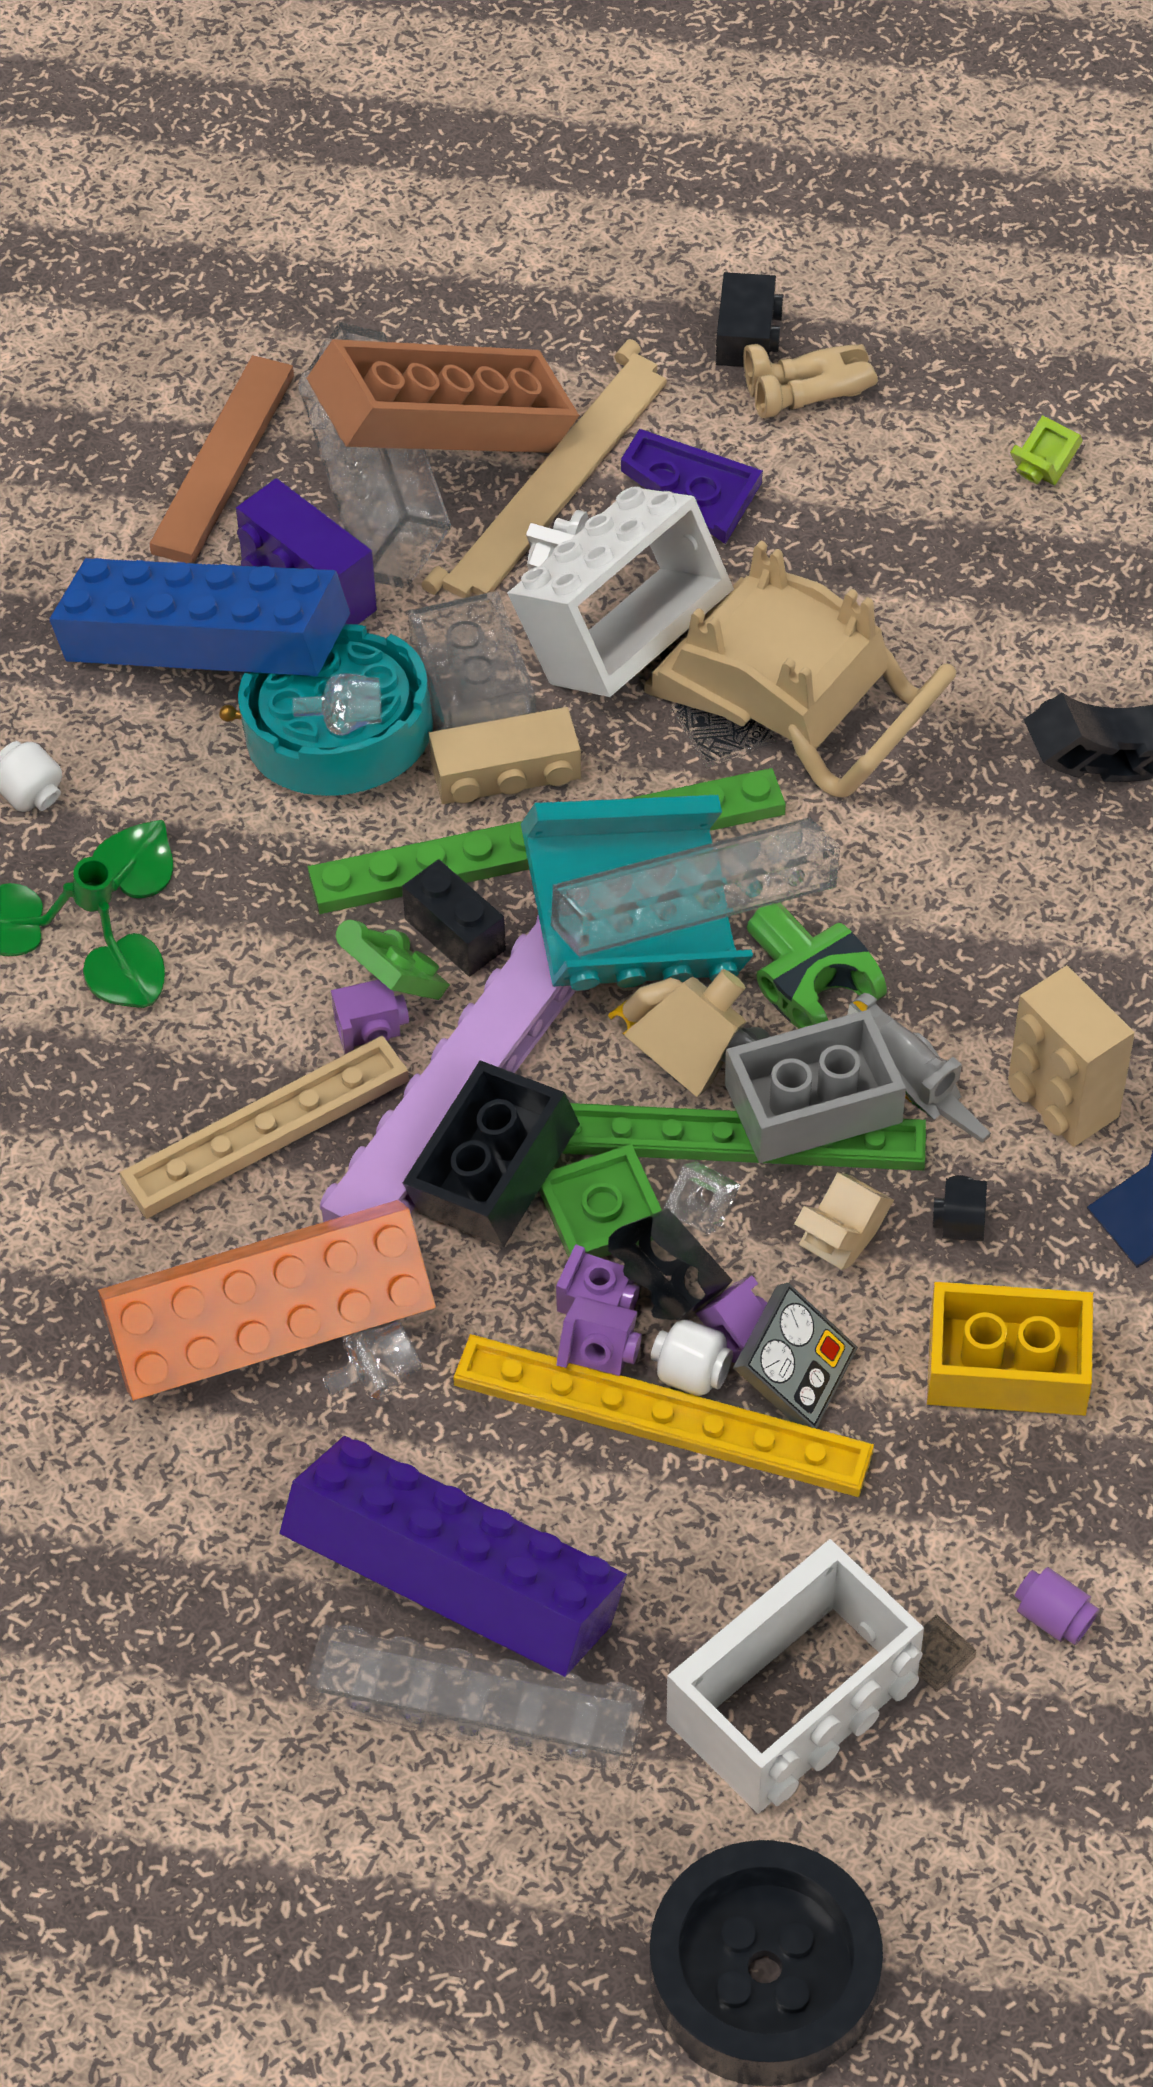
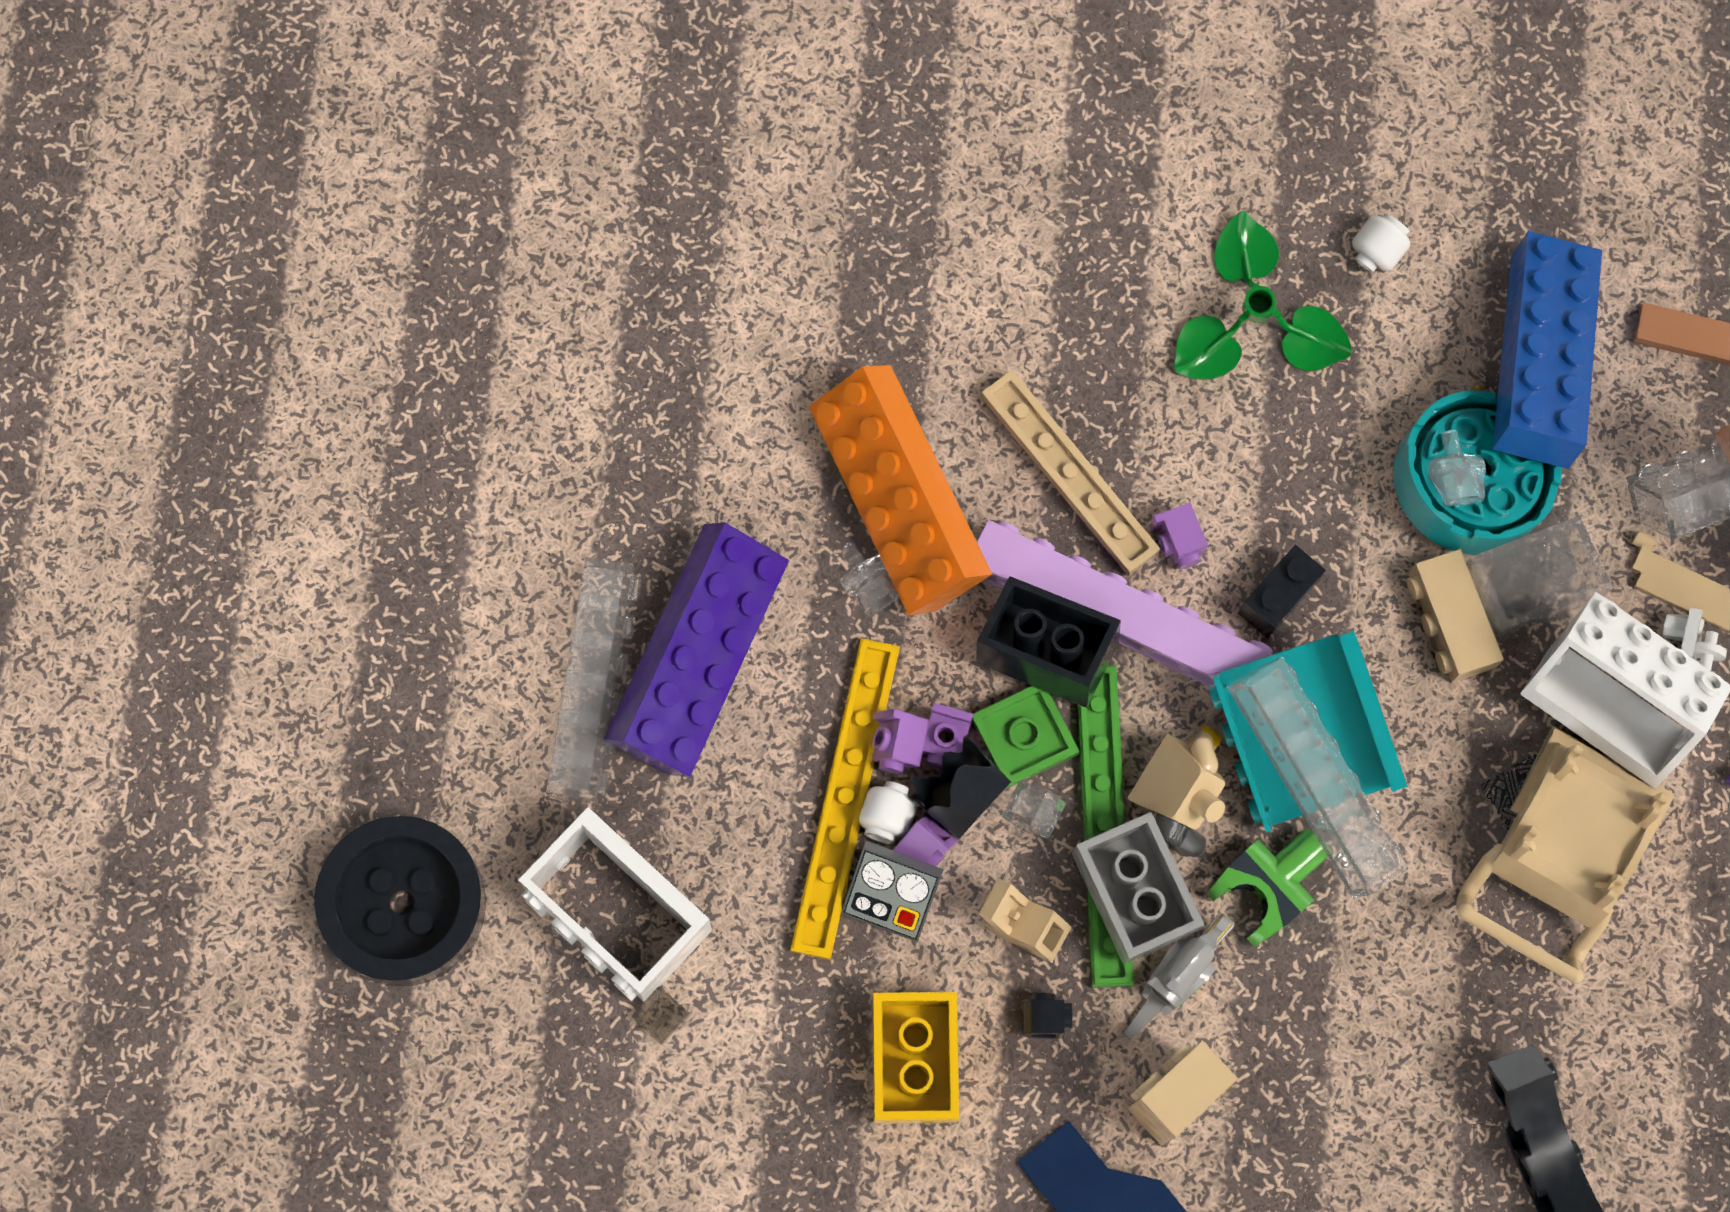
camera: 80 degrees right, 20 degrees up
(289, 532) = (1631, 425): dark purple brick -> none
(391, 961) = (1216, 554): bright green plate -> none
(502, 848) = (1358, 608): bright green plate -> none
(1056, 1605) = (701, 1103): medium lavender brick -> none

